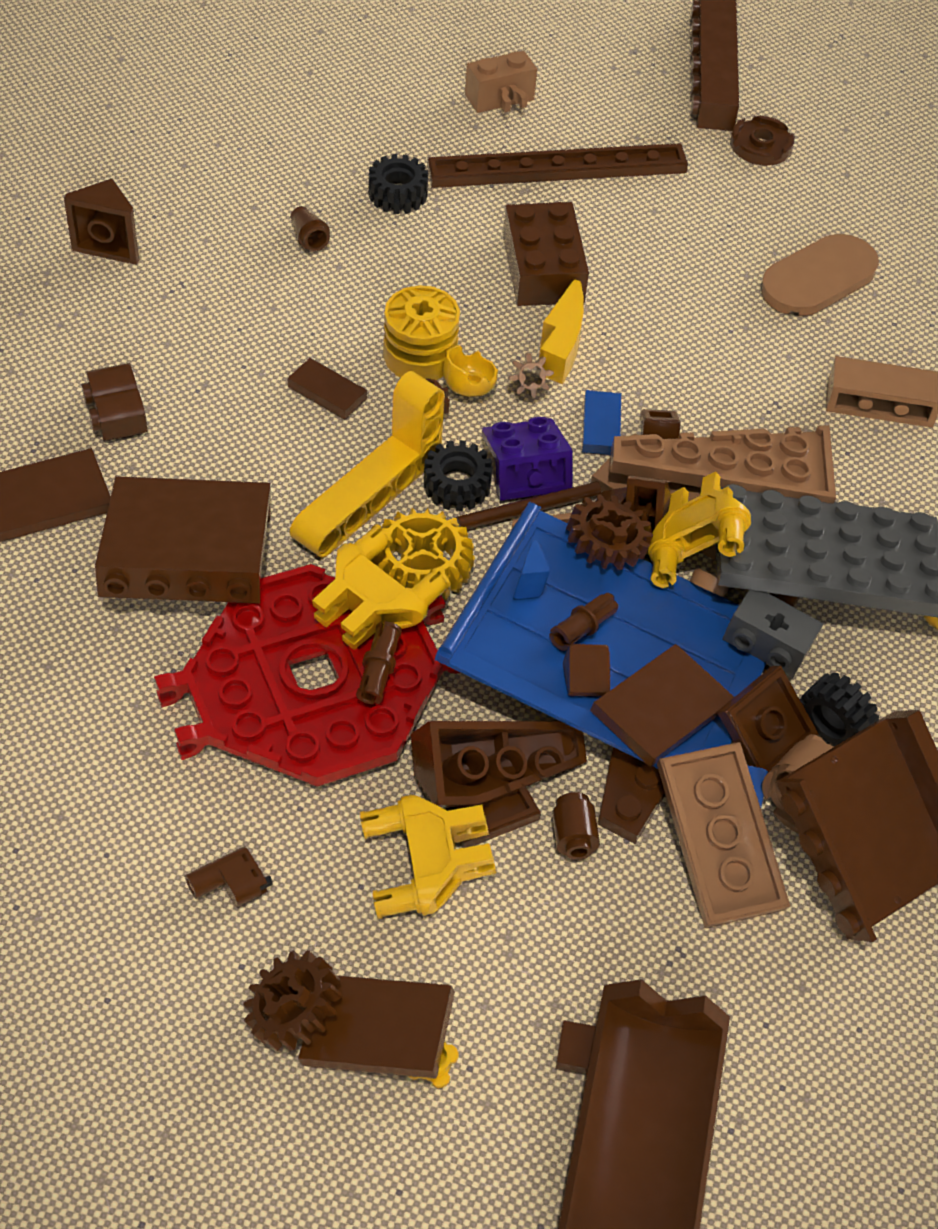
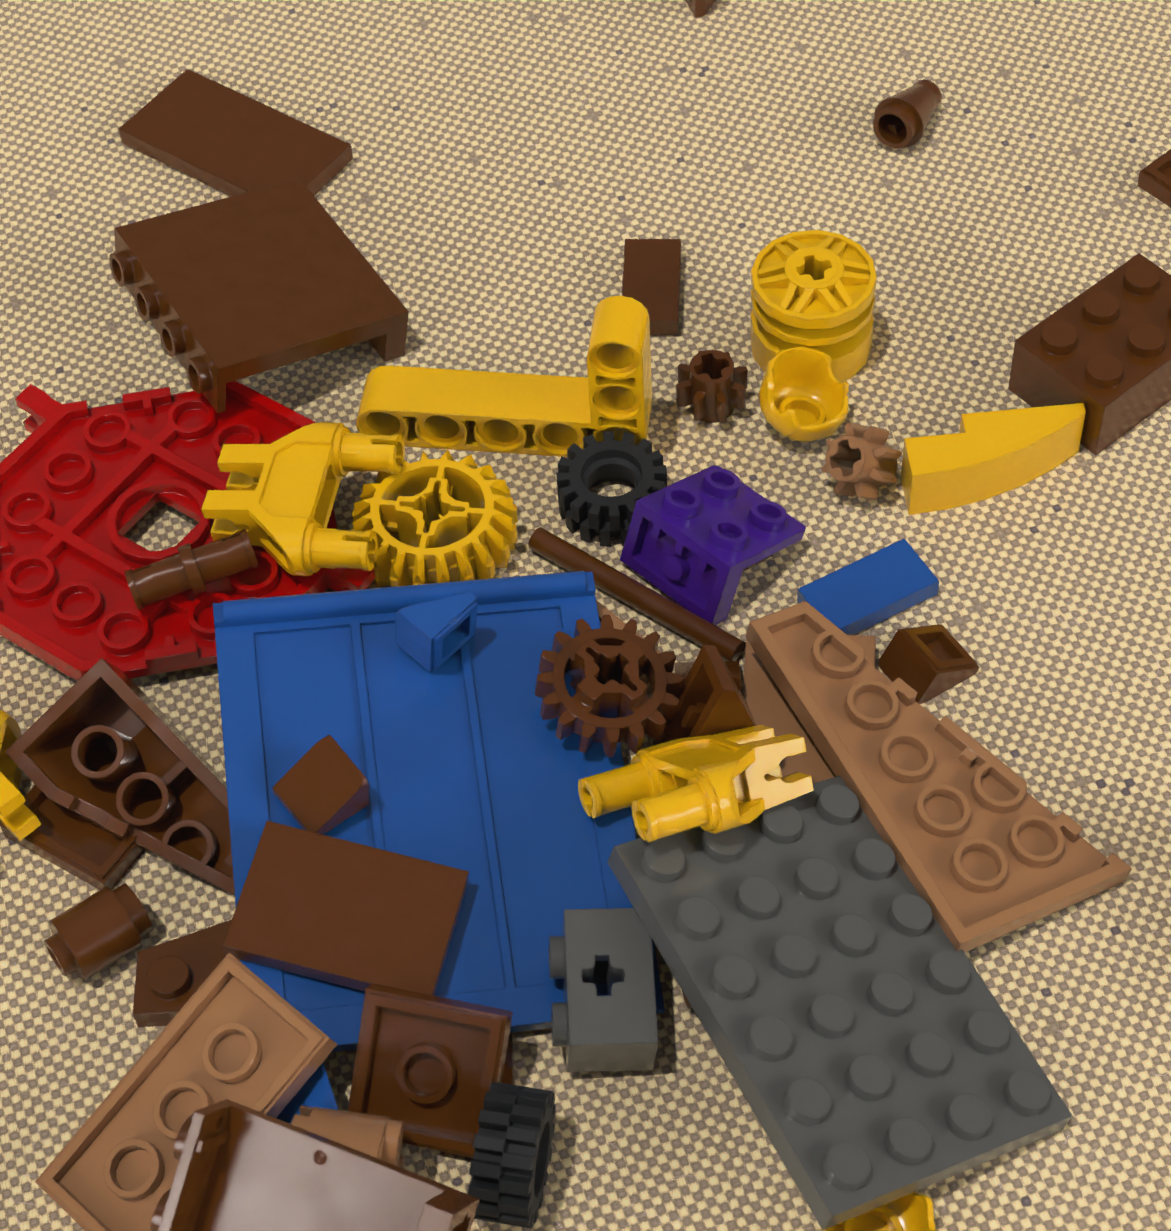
camera: 65 degrees right, 0 degrees up
(116, 402) = (438, 120): reddish brown brick -> none
(398, 170) = (1085, 166): black tyre -> none
(583, 621) = (414, 738): reddish brown axle -> none

